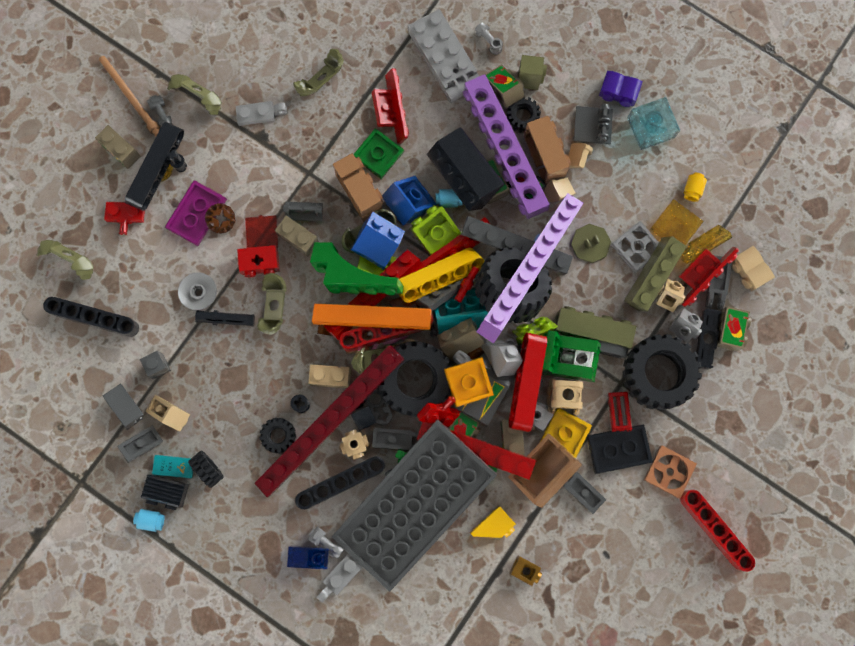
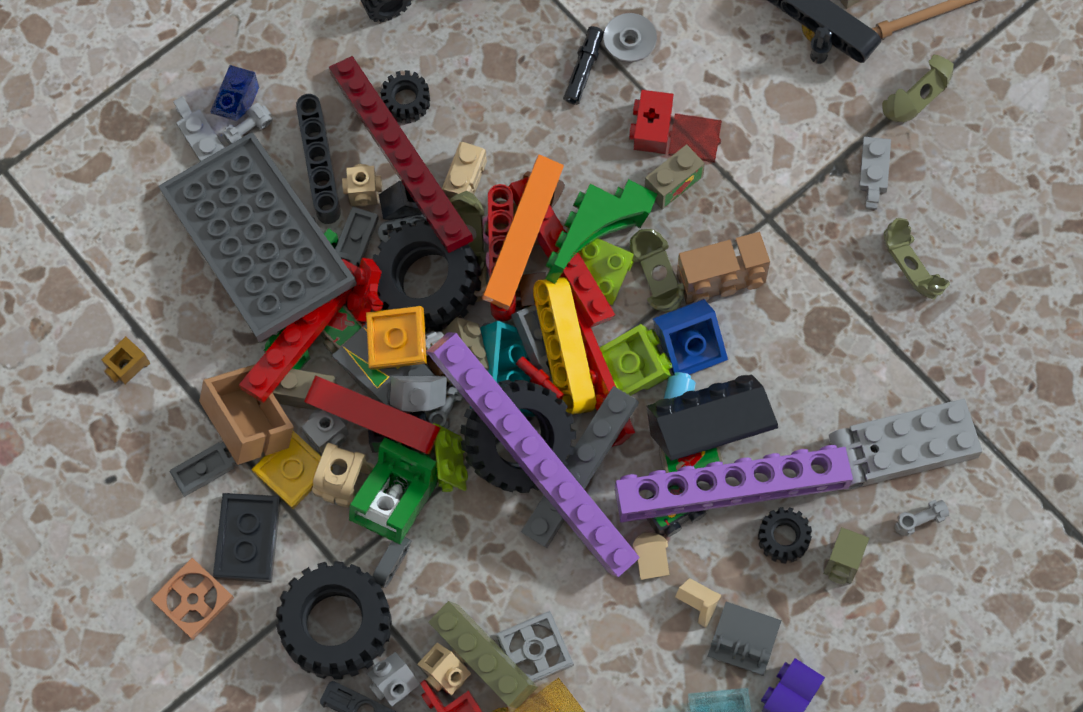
camera: 110 degrees right, 10 degrees down
(156, 103) = (918, 38): dark grey bar -> none
(189, 216) = (744, 60): magenta tile -> none
(213, 223) = (732, 97): reddish brown gear -> none
(275, 289) = (562, 121): olive piece -> none
(303, 211) = (711, 195): dark grey hinge -> none
(303, 409) = (438, 131): black bush -> none
(377, 240) = (636, 274): blue slope -> none
(378, 153) = (774, 316): green tile -> none
(389, 107) = (840, 342): red bracket -> none
(495, 525) = (197, 338): yellow slope -> none
(505, 85) = (829, 511): brick -> none
(546, 149) = (714, 546): medium nougat piece -> none
(591, 243) = (559, 584): olive piece -> none
(597, 328) = (427, 547): olive brick -> none
(621, 427) = (272, 554): red tile -> none
(725, 534) = (75, 636): red beam -> none

